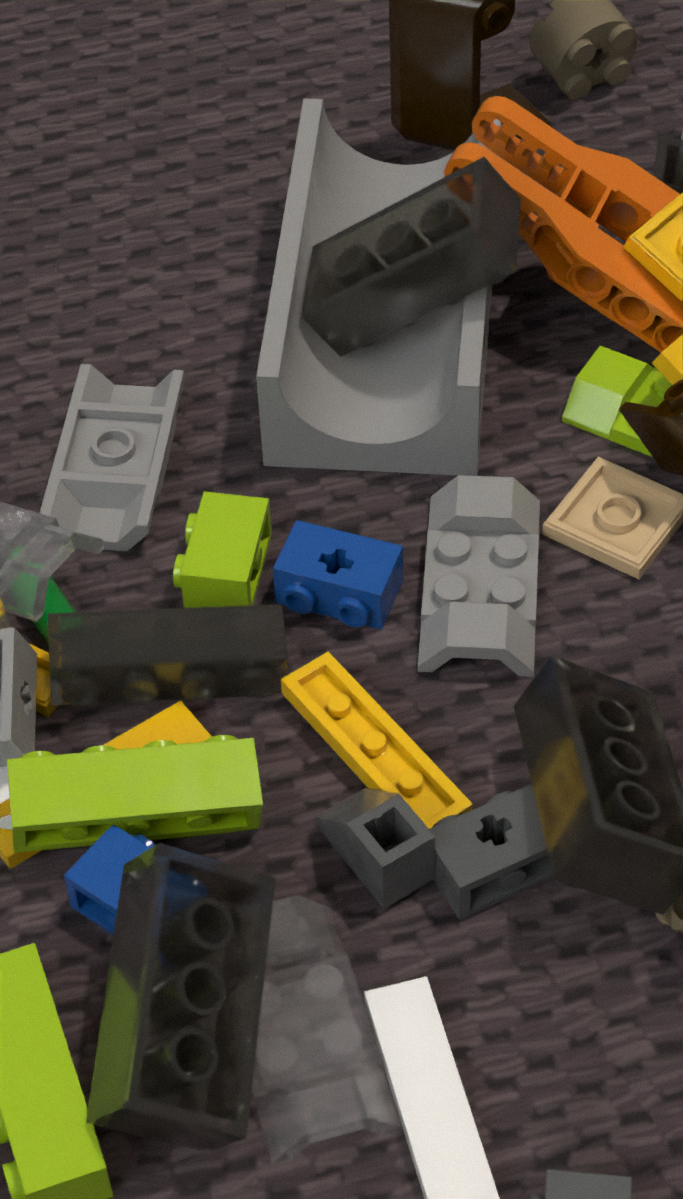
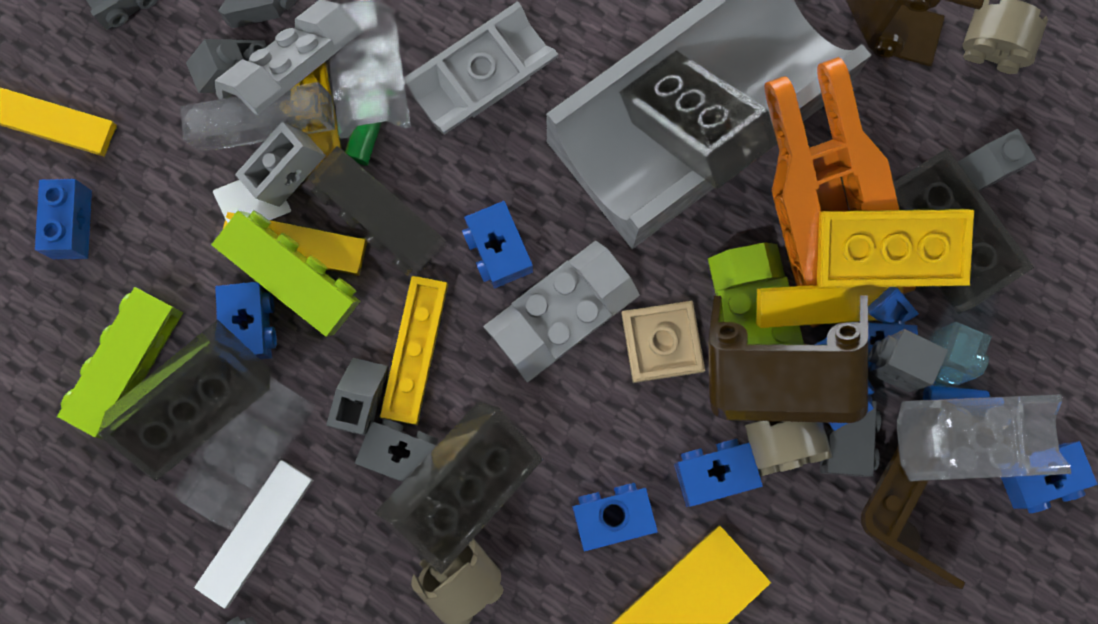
camera: 45 degrees right, 30 degrees up
(224, 551) = (465, 179): lime brick -> none

